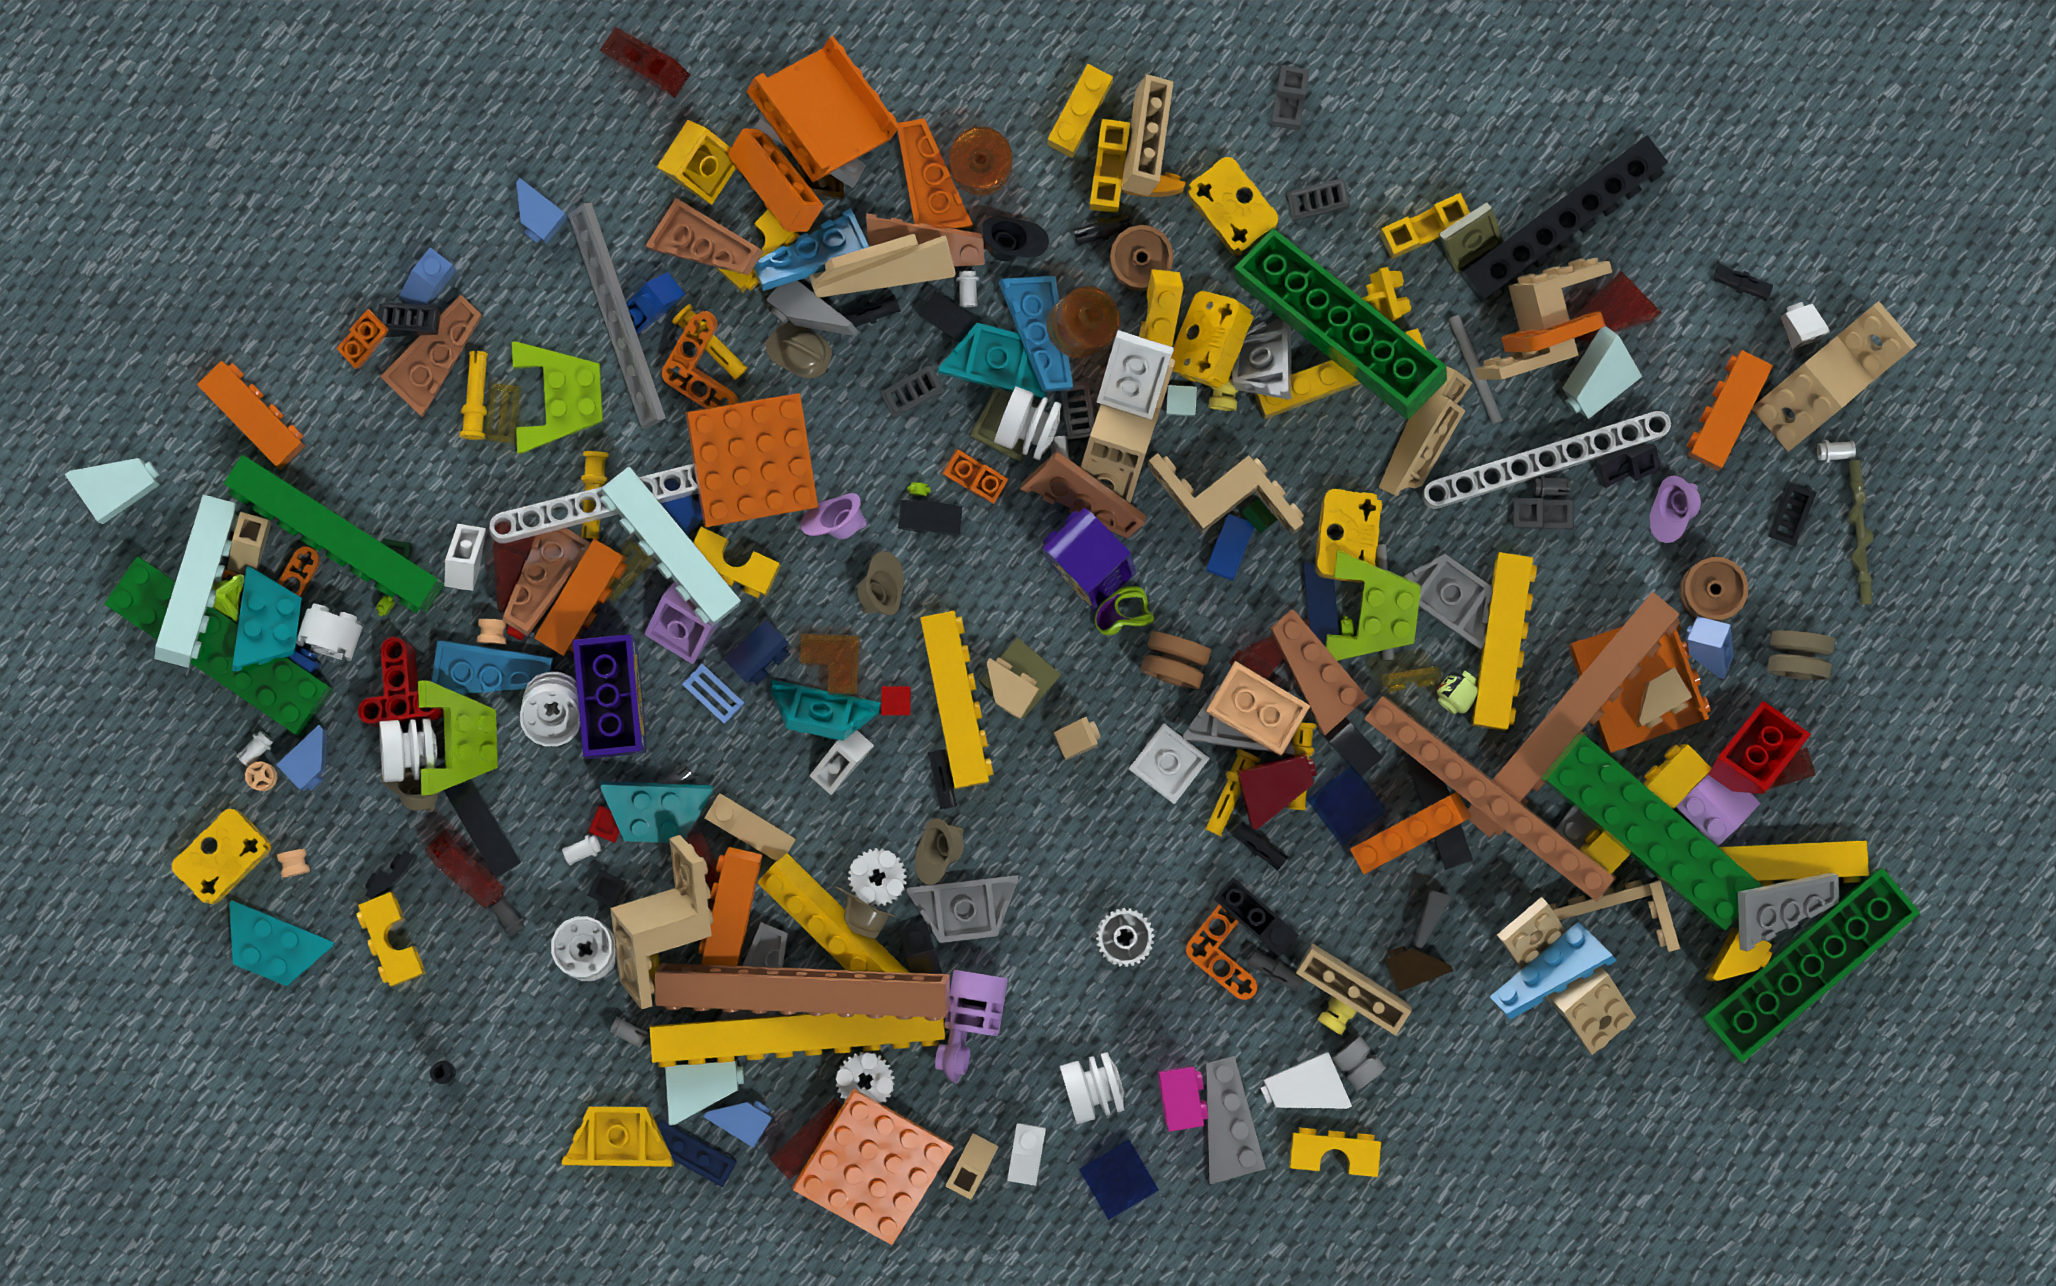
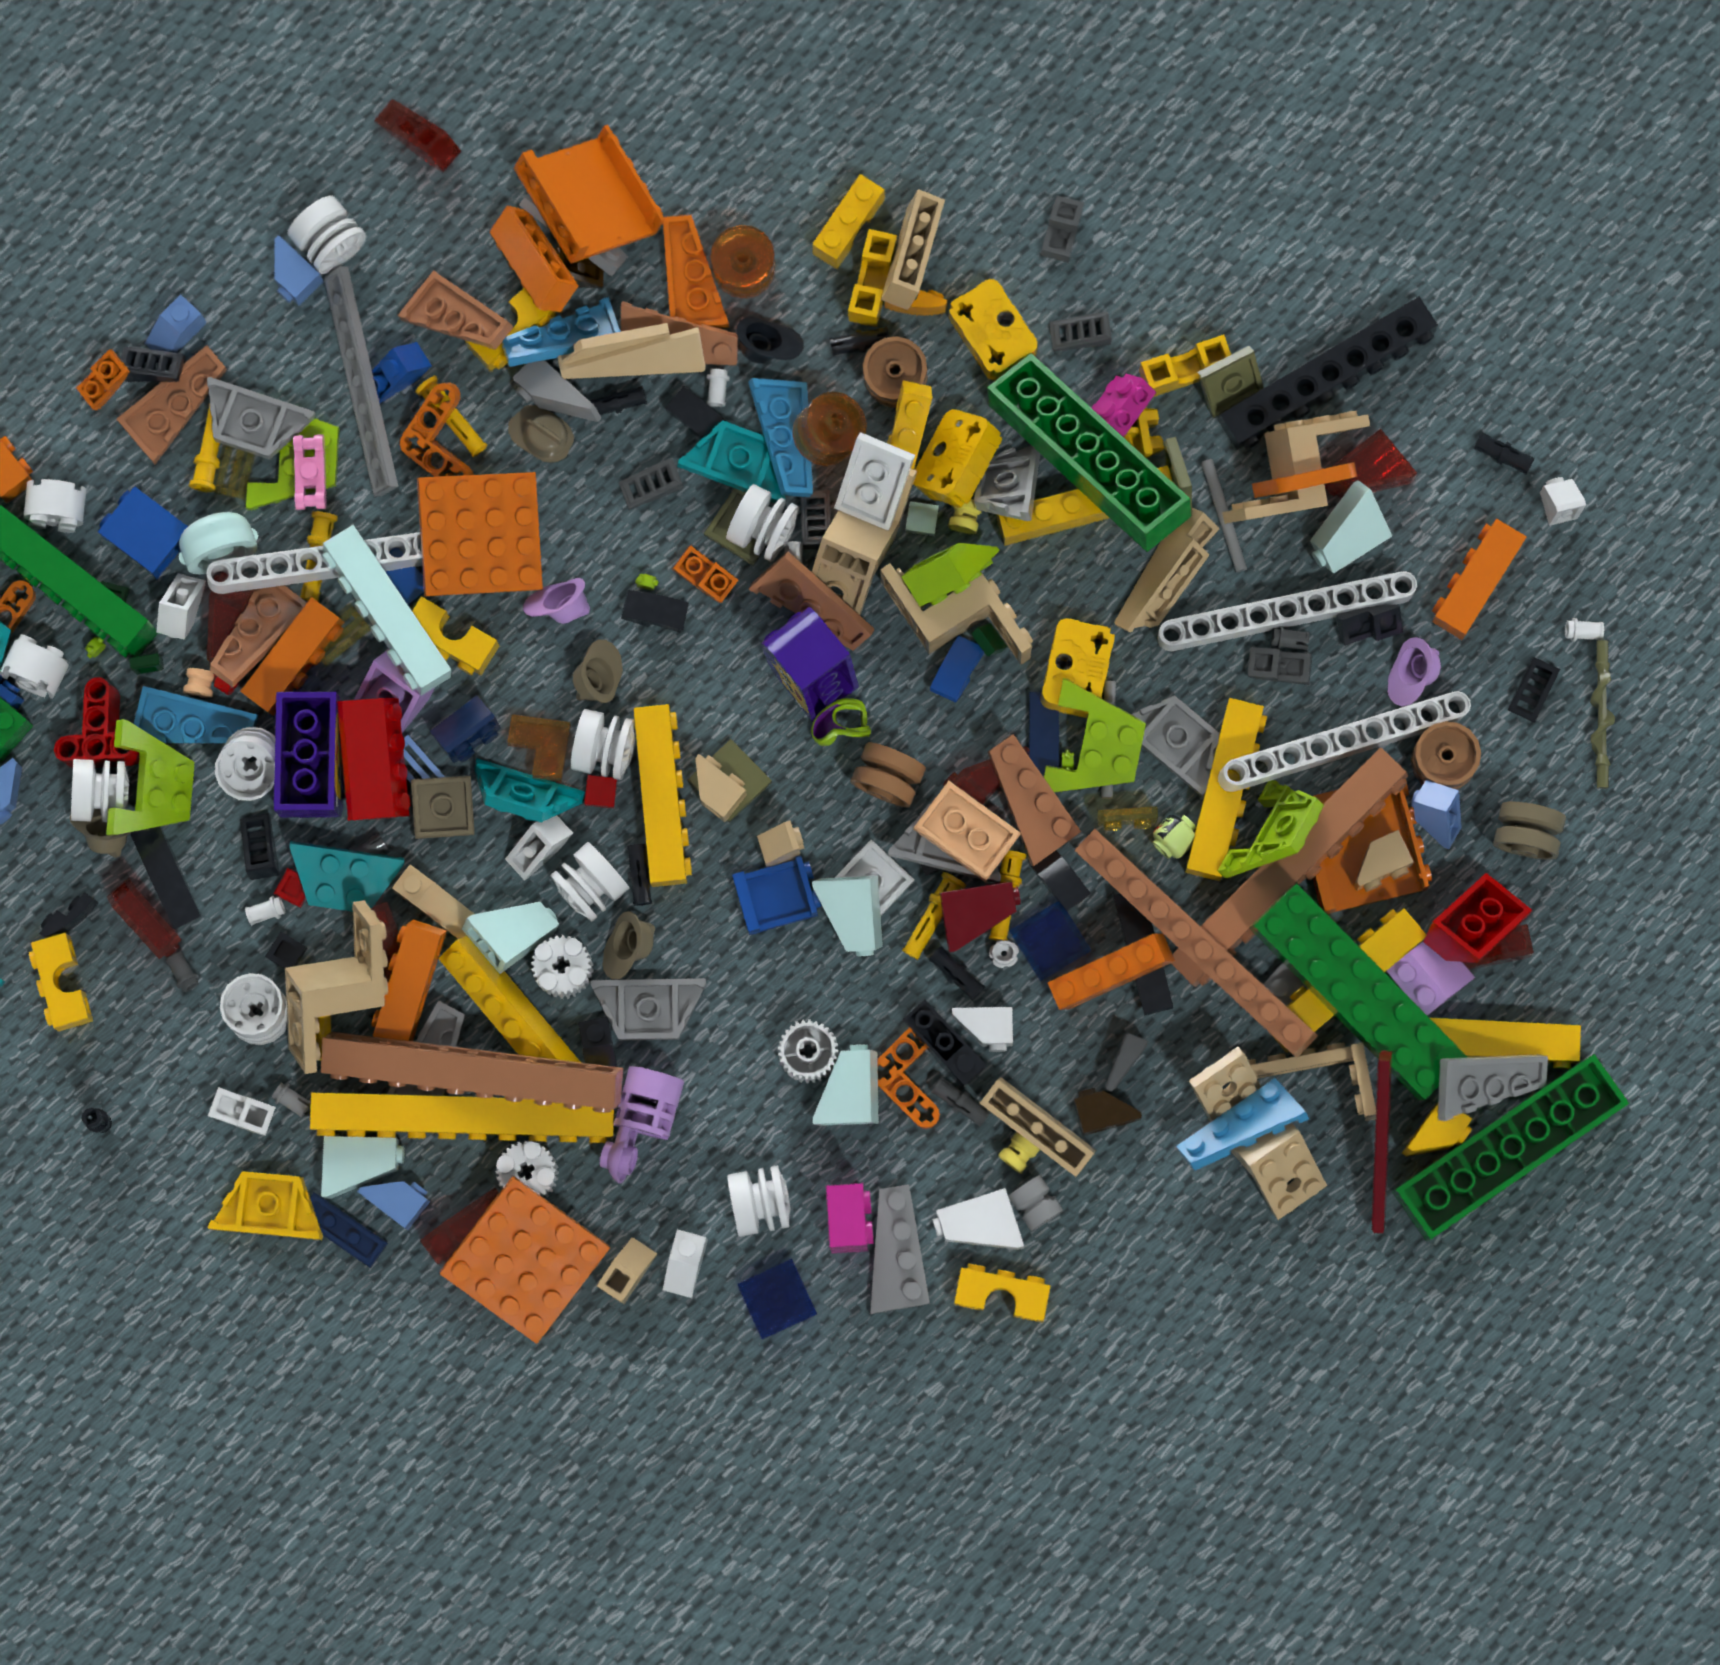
camera: 10 degrees right, 5 degrees down
(330, 469) = (54, 505): none -> white brick
(421, 486) = (143, 531): none -> blue panel
(438, 618) = (146, 664): none -> dark green tile
(494, 491) = (216, 538): none -> light aqua piece
(515, 366) = (253, 419): none -> light grey wing
(573, 178) = (326, 234): none -> white wheel
(573, 810) = (253, 868): none -> black slope
(577, 413) = (309, 472): none -> bright pink plate
(582, 1049) = (241, 1111): none -> white brick
(673, 693) = (373, 759): none -> red slope
(698, 162) = (460, 237): yellow slope -> none
(743, 731) = (442, 807): none -> dark tan tile
(824, 850) = (510, 932): none -> light aqua slope
(862, 917) = (542, 1003): dark tan piece -> none
(894, 656) = (602, 744): none -> white wheel
(895, 793) = (589, 882): none -> white wheel
(1078, 786) = (776, 895): none -> blue panel
(1154, 795) = (853, 911): none -> light aqua slope
(1170, 971) = (851, 1090): none -> light aqua slope
(1215, 458) = (948, 572): none -> lime slope
(1295, 895) = (987, 1025): none -> white slope
(1310, 826) = (1002, 961): none -> white plate
(1367, 269) = (1124, 402): none -> dark pink plate
(1428, 332) = (1177, 467): none -> olive tile
(1565, 680) = (1281, 834): none -> lime wing
(1624, 575) = (1330, 744): none -> white beam
(1687, 974) = (1381, 1142): none -> dark red tile
(1833, 376) = (1587, 552): tan bracket -> none

